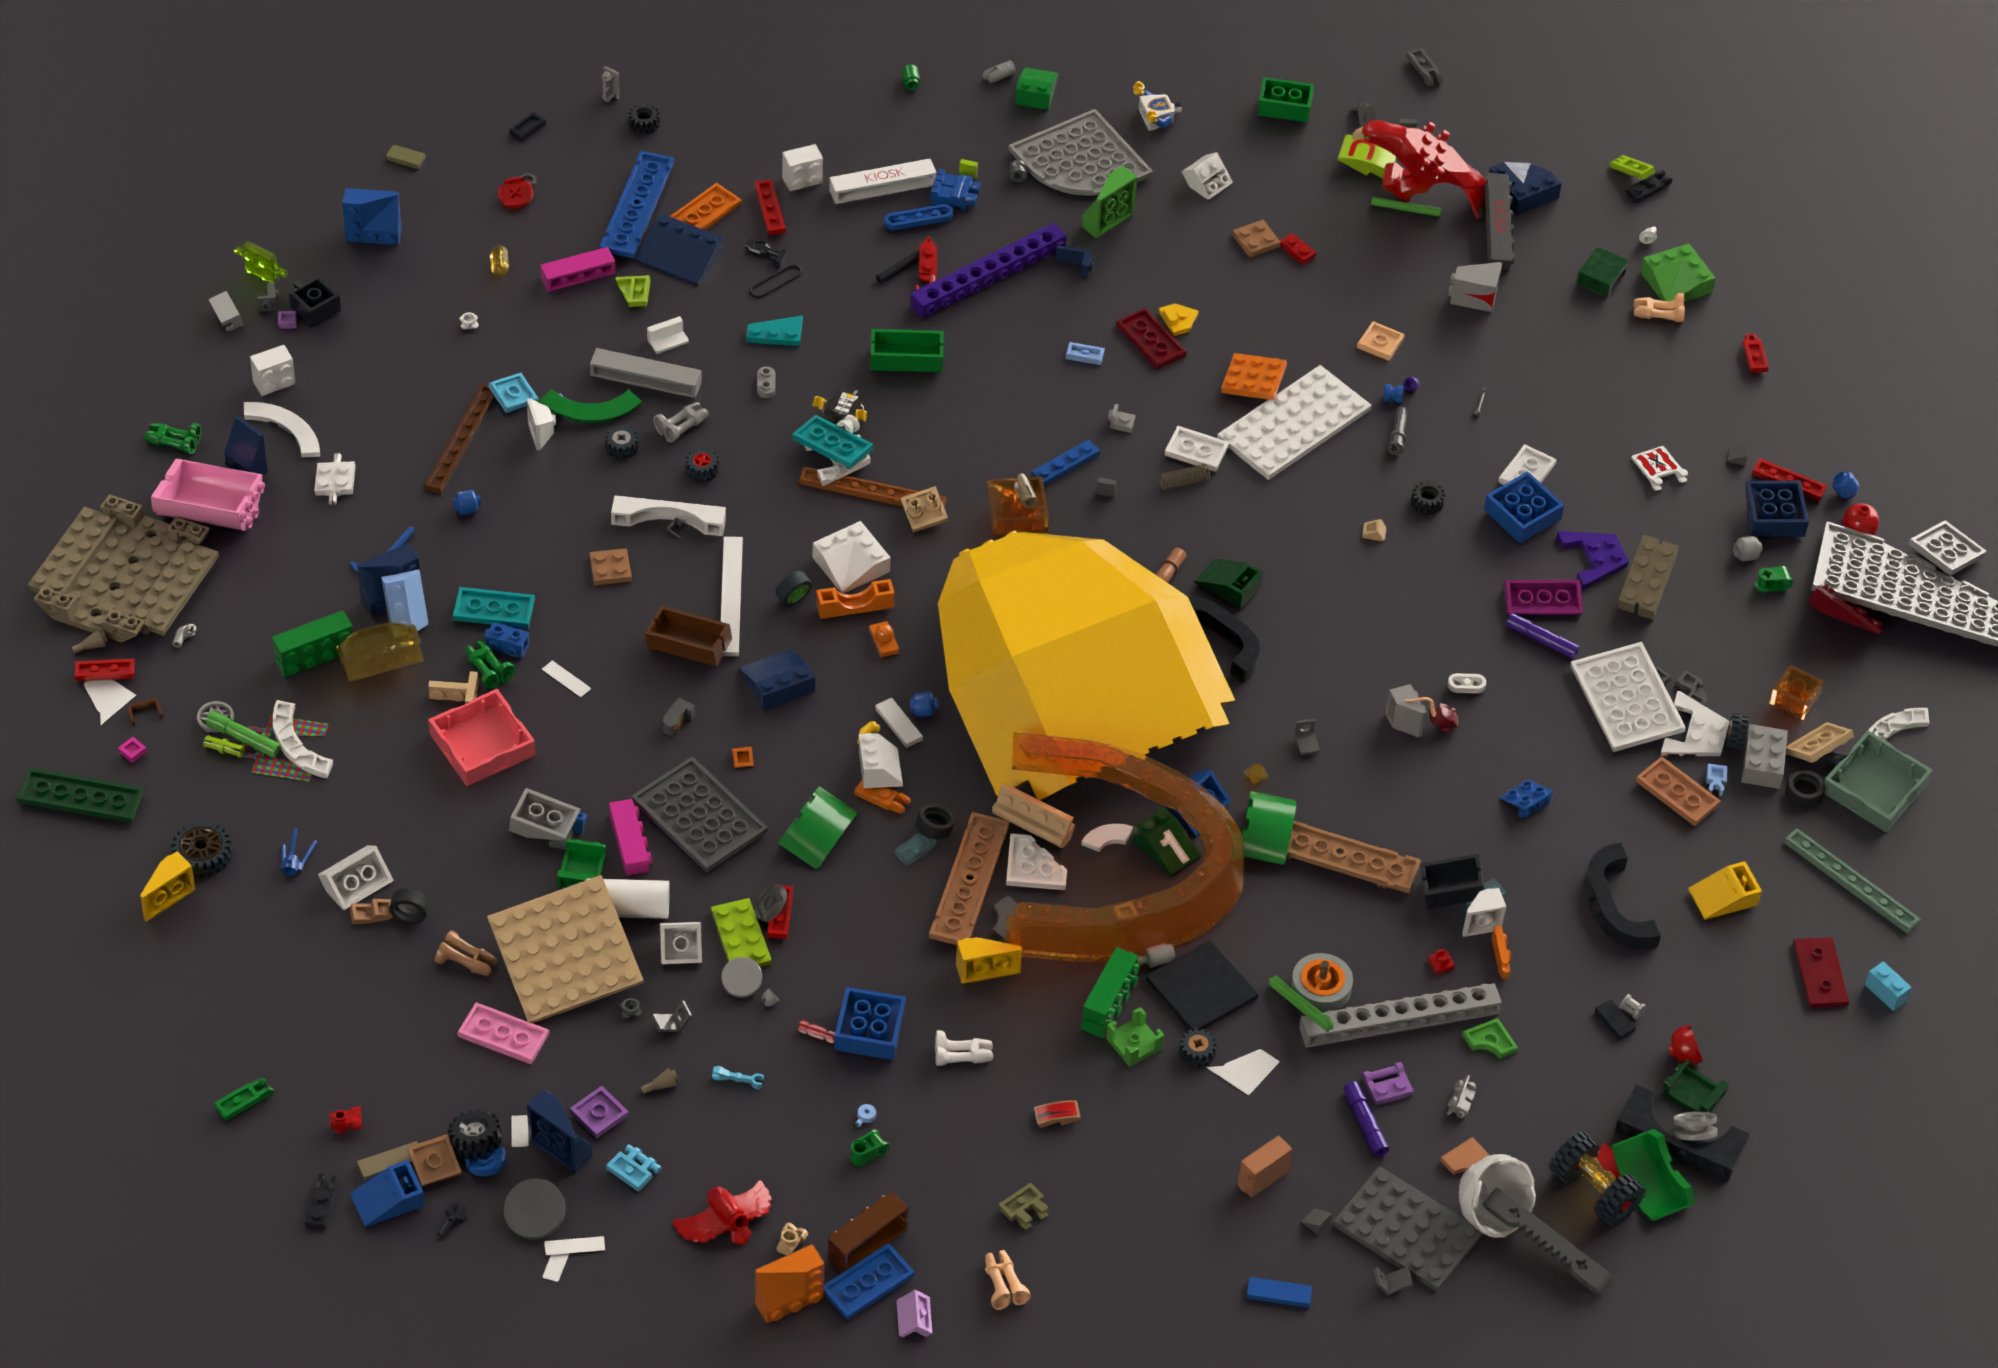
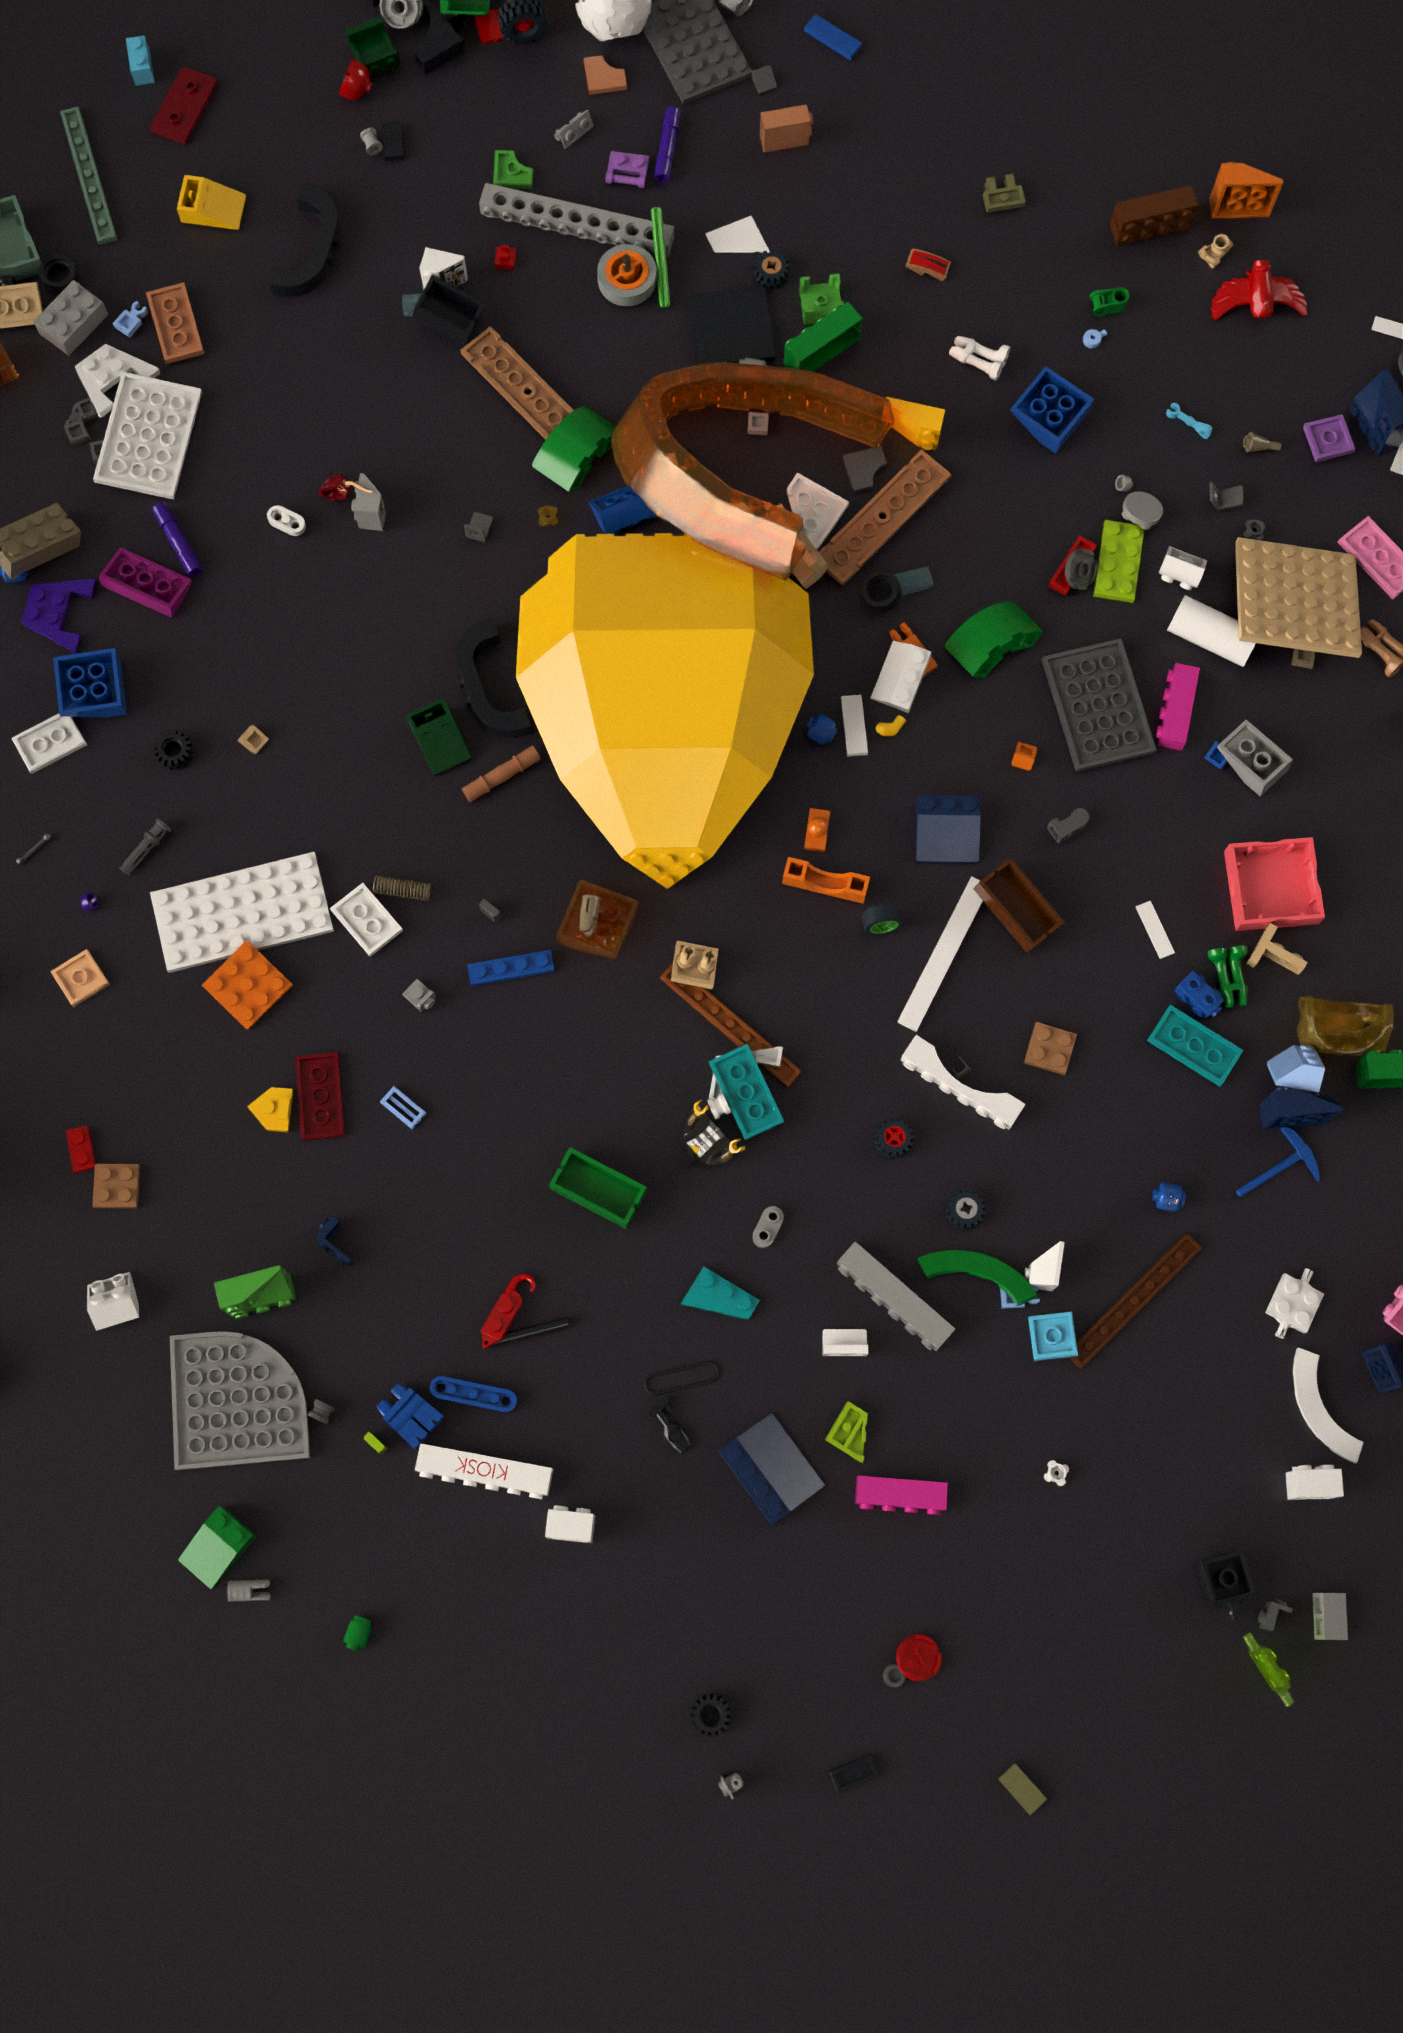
camera: 150 degrees left, 25 degrees up
(287, 319) = (1262, 1575): medium lavender tile -> none
(372, 216) = (1132, 1684): blue slope -> none
(499, 260) = (984, 1550): clear yellow plate -> none
(581, 862) = (1237, 695): green panel -> none
(630, 1171) = (1326, 371): medium azure plate -> none
(632, 219) = (769, 1583): blue piece -> none
(692, 414) = (907, 1212): light grey piece -> none
(708, 207) = (710, 1526): orange tile -> none
(770, 207) = (634, 1491): red plate -> none
(816, 1031) = (1096, 433): axle -> none
(851, 557) = (800, 939): white slope -> none
(868, 1281) = (1170, 178): blue plate -> none
(914, 1314) = (1144, 143): lavender panel -> none
(987, 270) = (341, 1292): dark purple brick -> none
(1001, 1296) = (1049, 120): light nougat piece -> none
(1155, 109) = (104, 1433): torso -> none
(1393, 393) = (118, 895): blue wheel -> none
(1502, 955) = (450, 233): orange hinge -> none
(1528, 797) = (315, 378): blue hinge -> none
(1737, 731) = (76, 347): black wheel -> none

